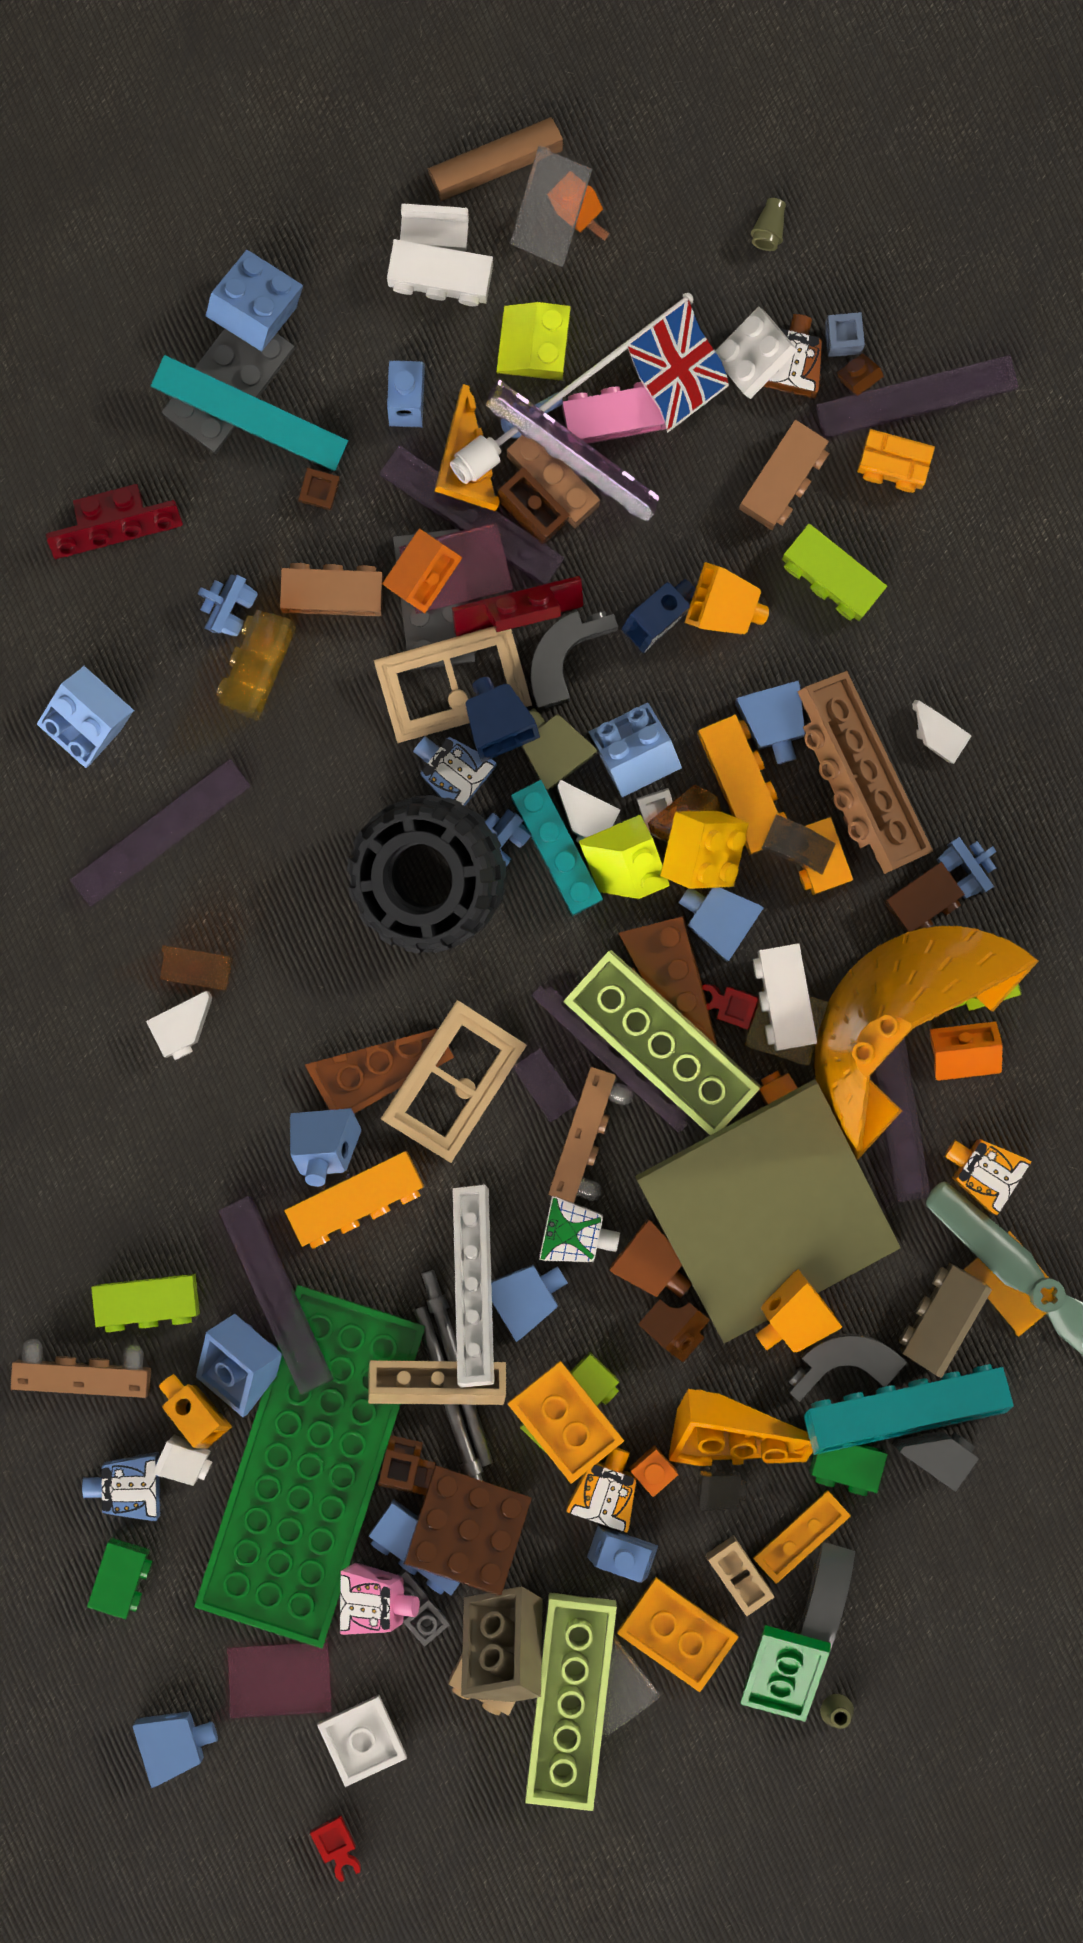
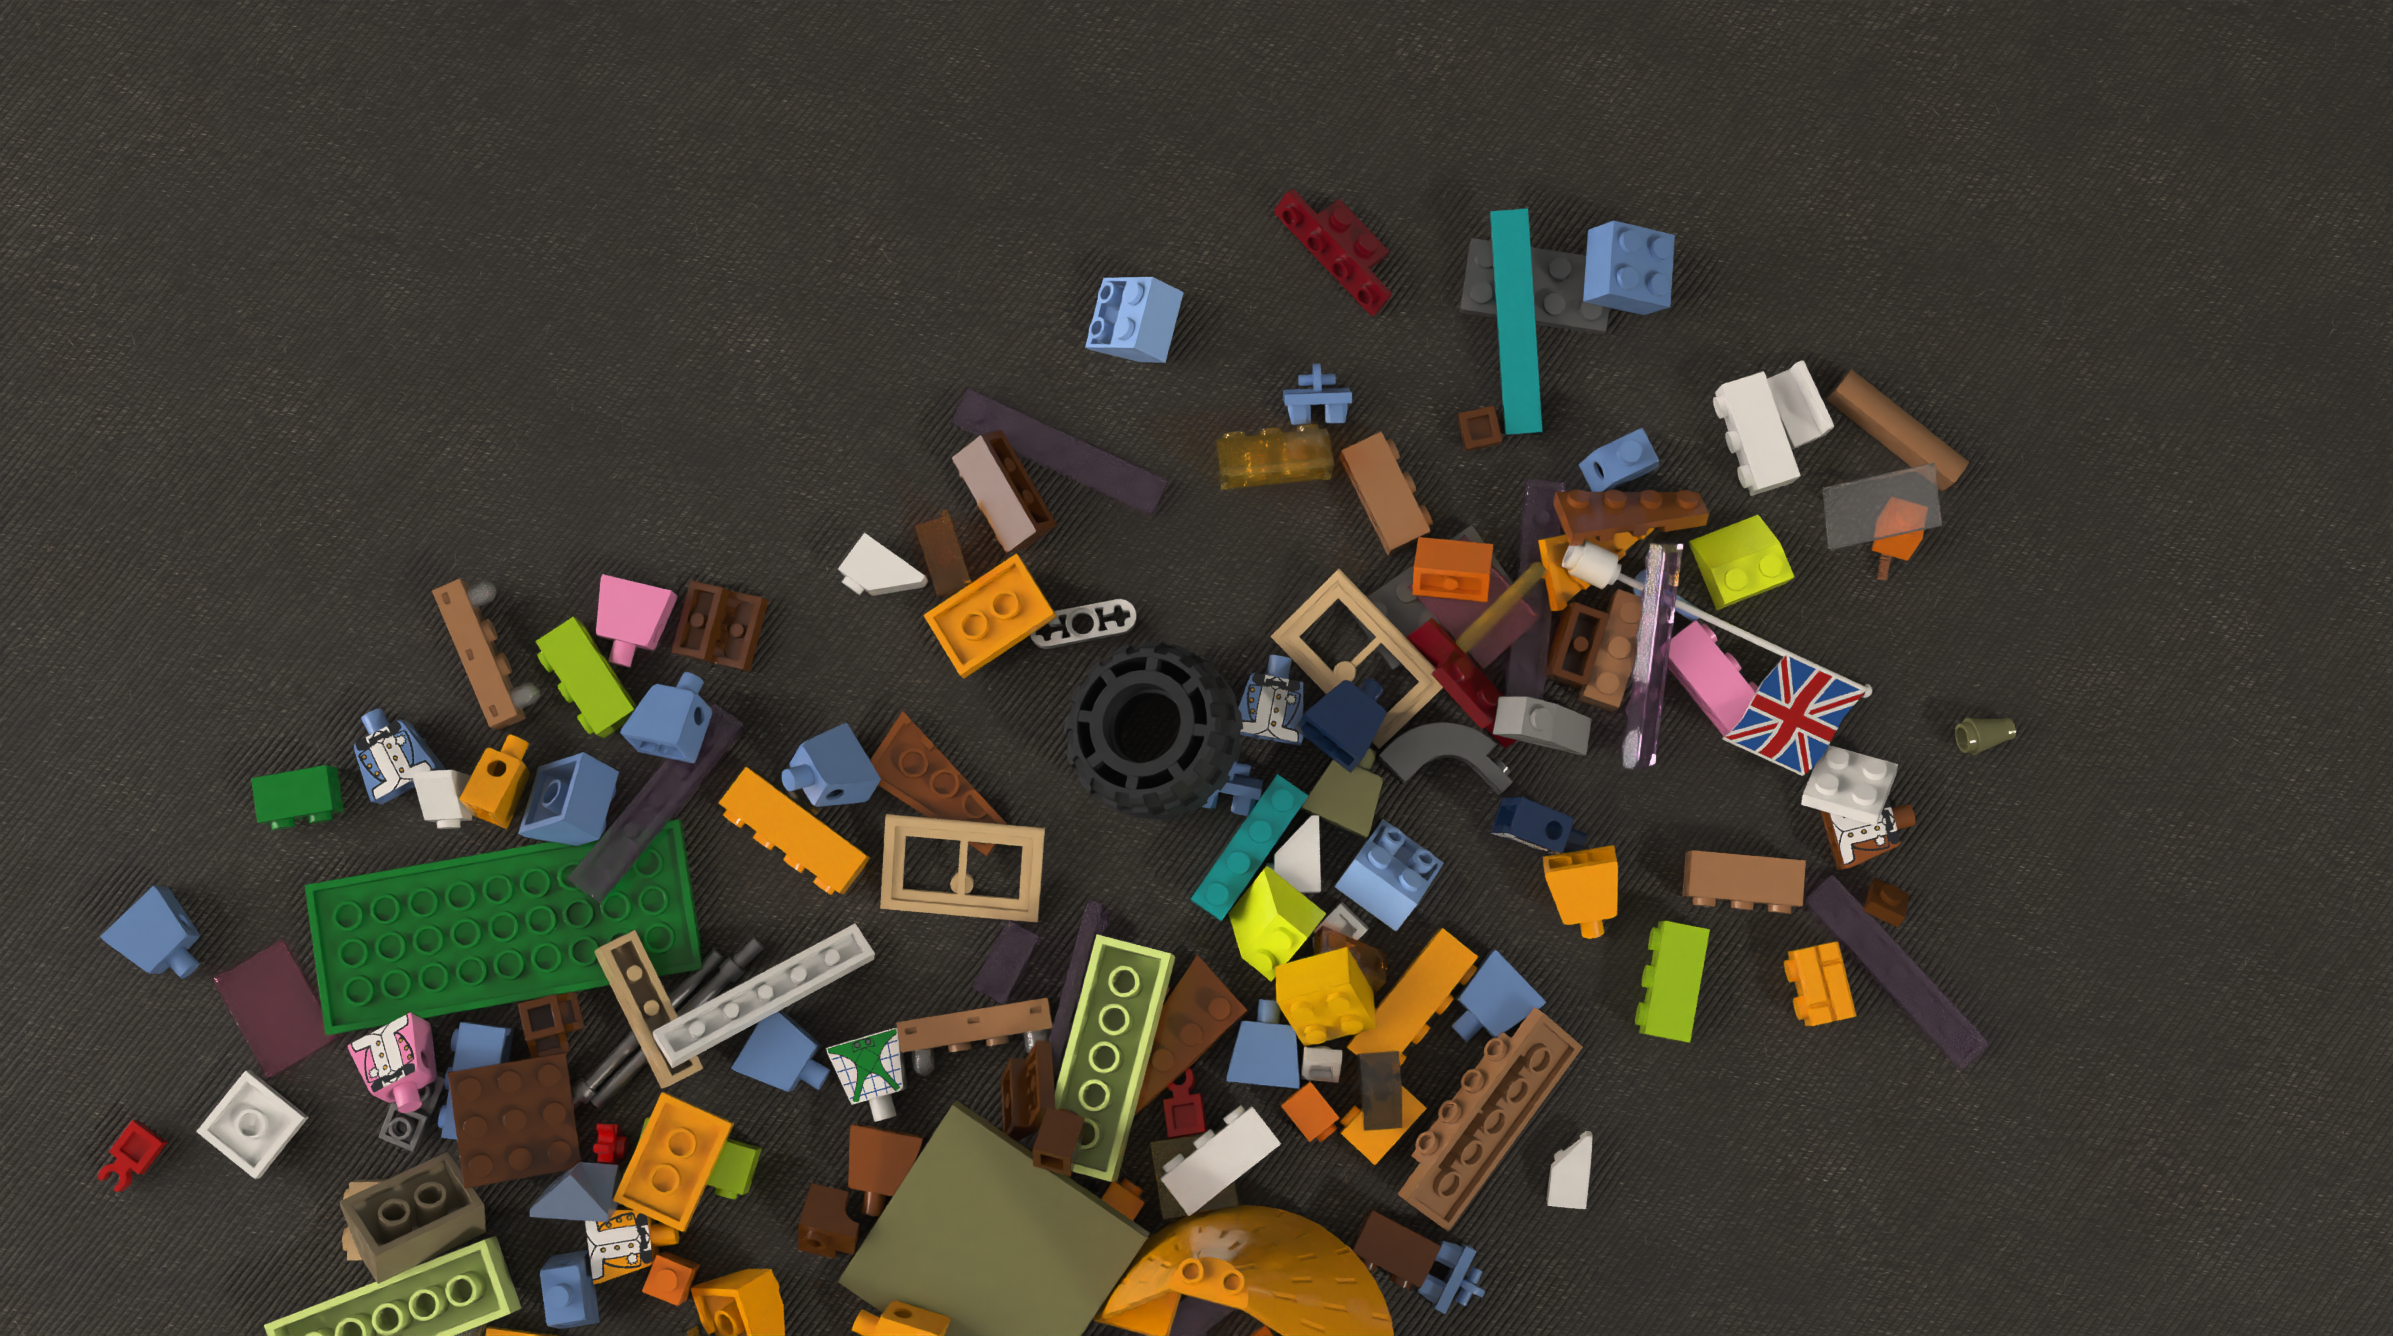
camera: 65 degrees right, 5 degrees down
(114, 1241) = (631, 616): none -> bright pink torso
(158, 1175) = (720, 626): none -> reddish brown slope
(170, 893) = (1004, 491): none -> brick
(216, 1251) = (670, 720): none -> medium blue torso
(265, 956) = (990, 616): none -> light orange plate
(308, 860) = (1108, 610): none -> white beam
(445, 416) = (1614, 512): none -> dark orange wing
(474, 549) = (1501, 607): none -> clear yellow tile
(528, 1466) = (611, 1144): none -> red plate
(552, 1507) = (581, 1194): none -> sand blue slope
(581, 566) = (1542, 724): none -> light grey slope
(656, 1118) = (1027, 1091): none -> reddish brown slope
(708, 1111) = (1059, 1141): none -> reddish brown brick
(754, 880) = (1321, 1064): none -> white plate
(786, 908) = (1310, 1113): none -> orange brick
(844, 334) = (1917, 865): sand blue brick -> none

